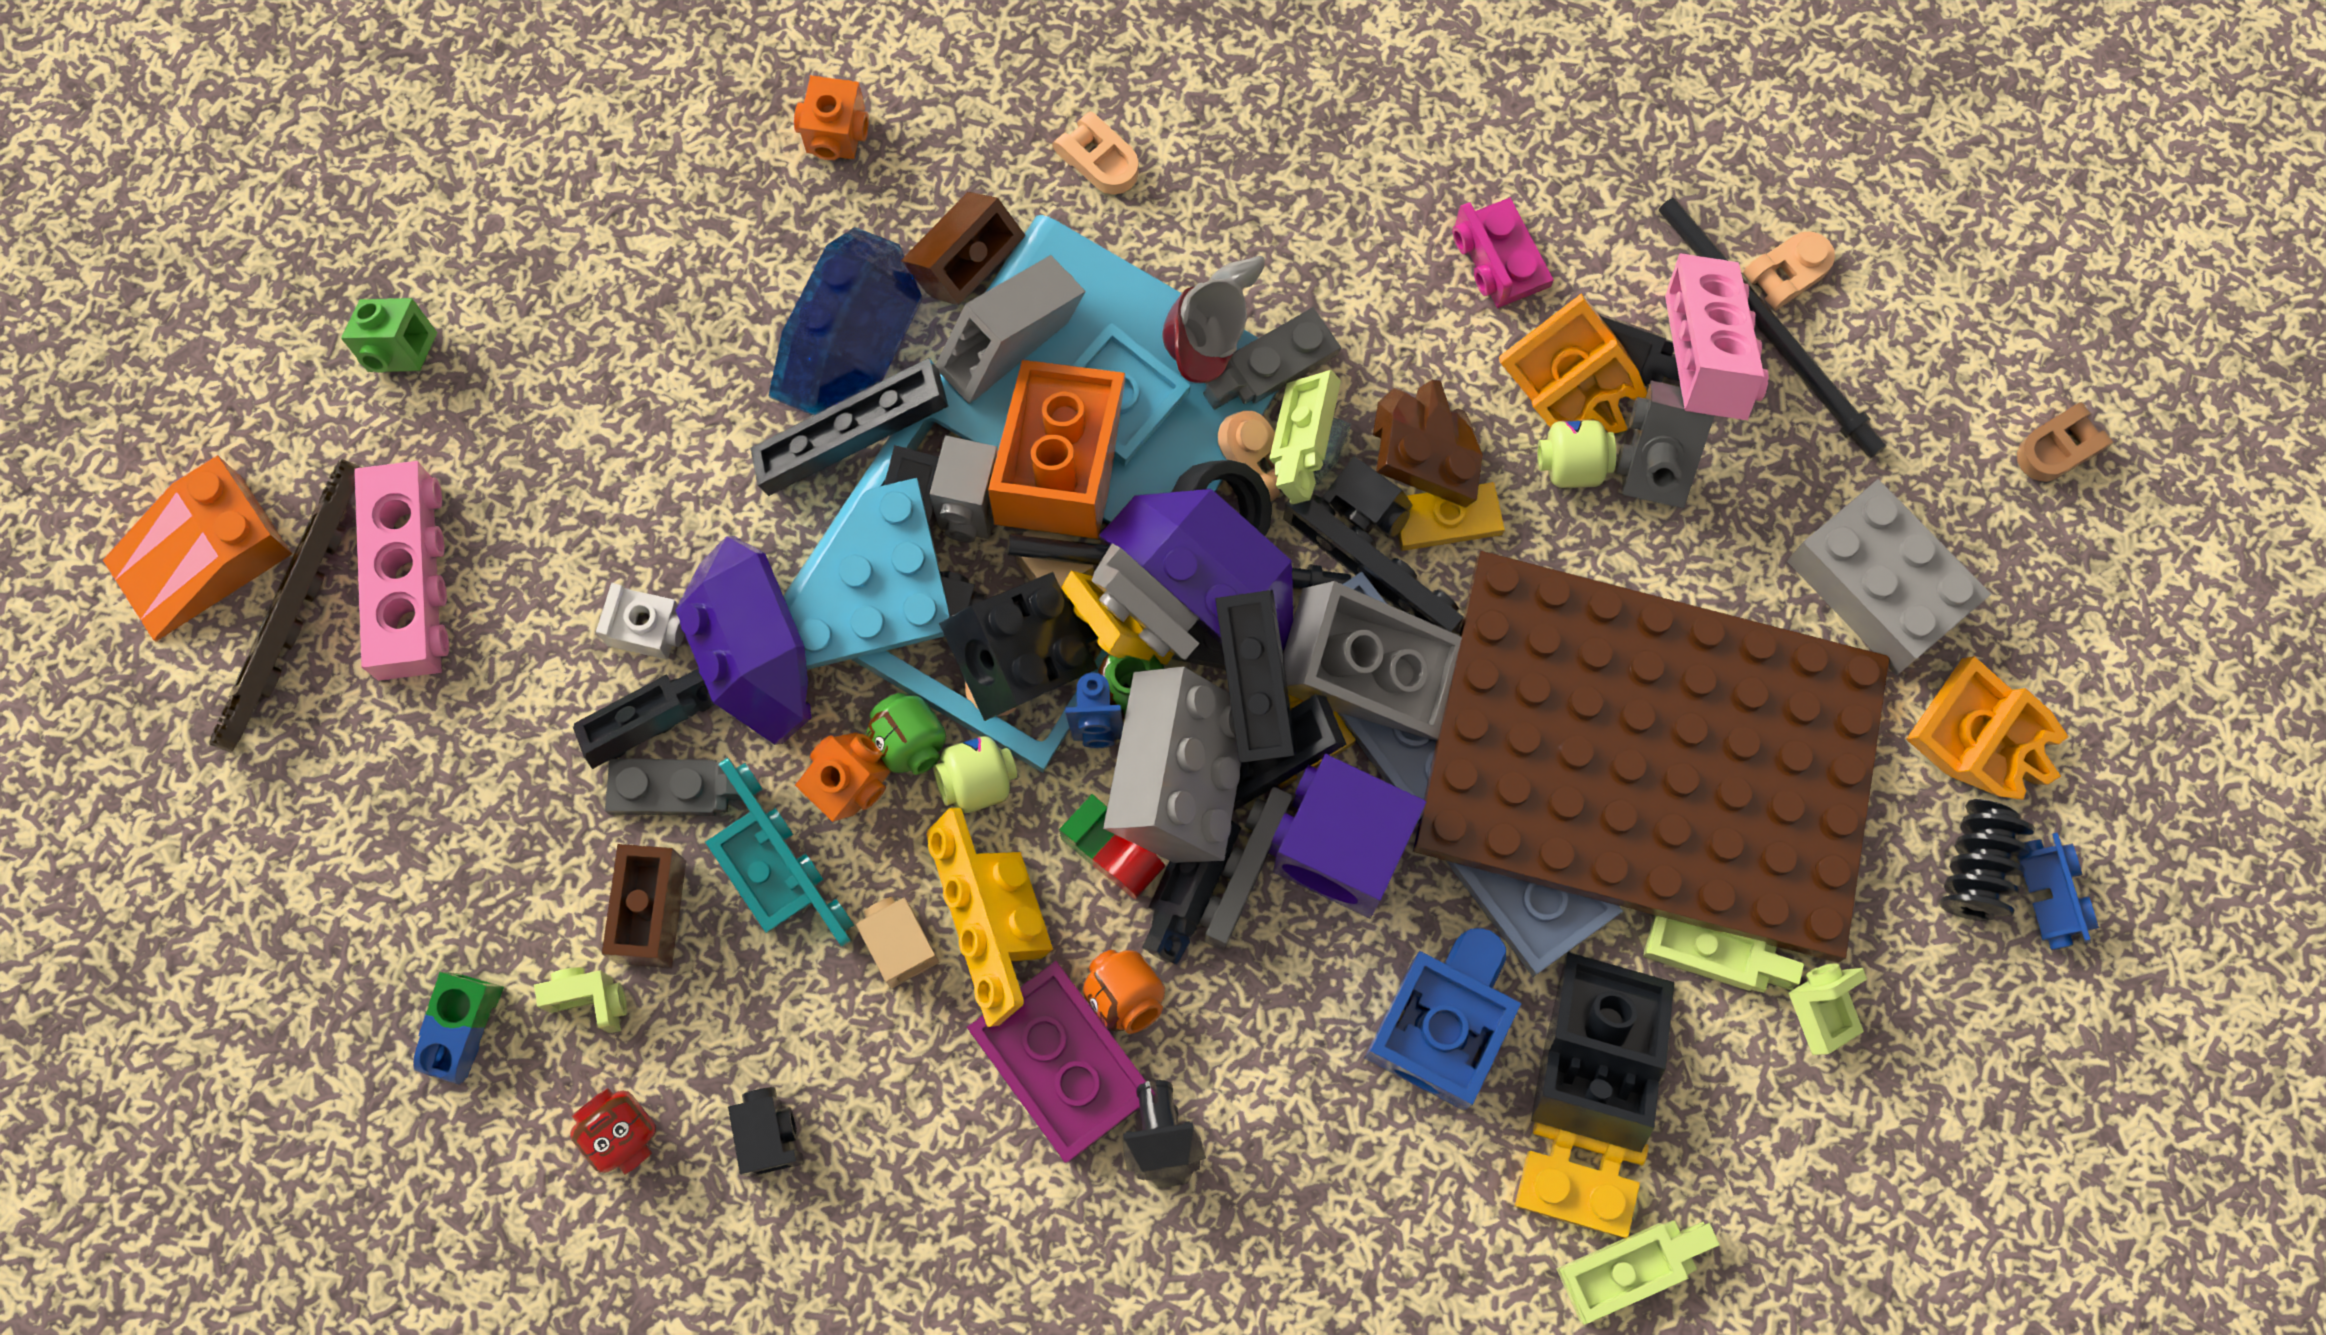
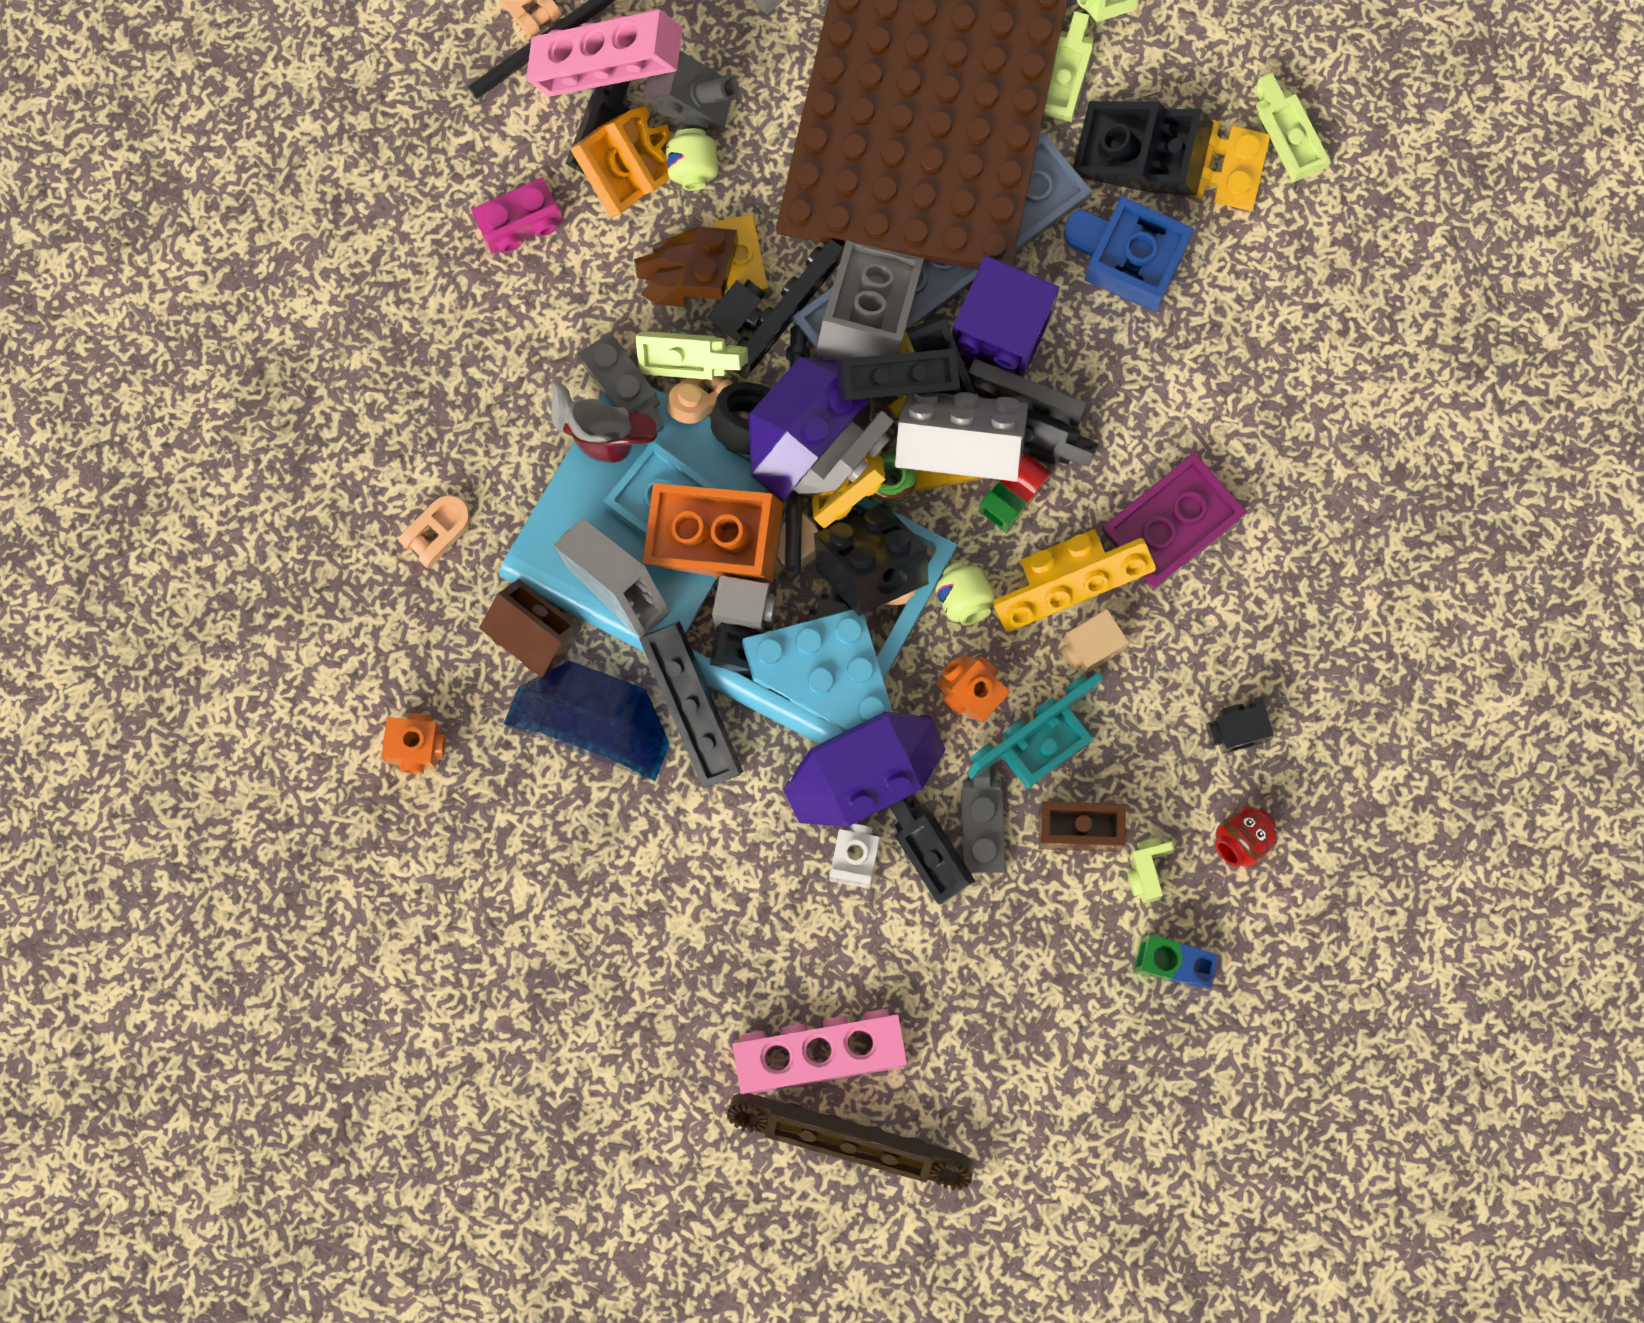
camera: 90 degrees left, 5 degrees up
(194, 548) = (808, 1228): orange slope -> none
(389, 335) = (618, 1088): bright green brick -> none
(906, 733) = (937, 644): bright green head -> none
(1094, 718) = (918, 501): blue hinge -> none
(1124, 991) = (1121, 478): orange head -> none
(1164, 1150) = (1229, 441): black connector -> none

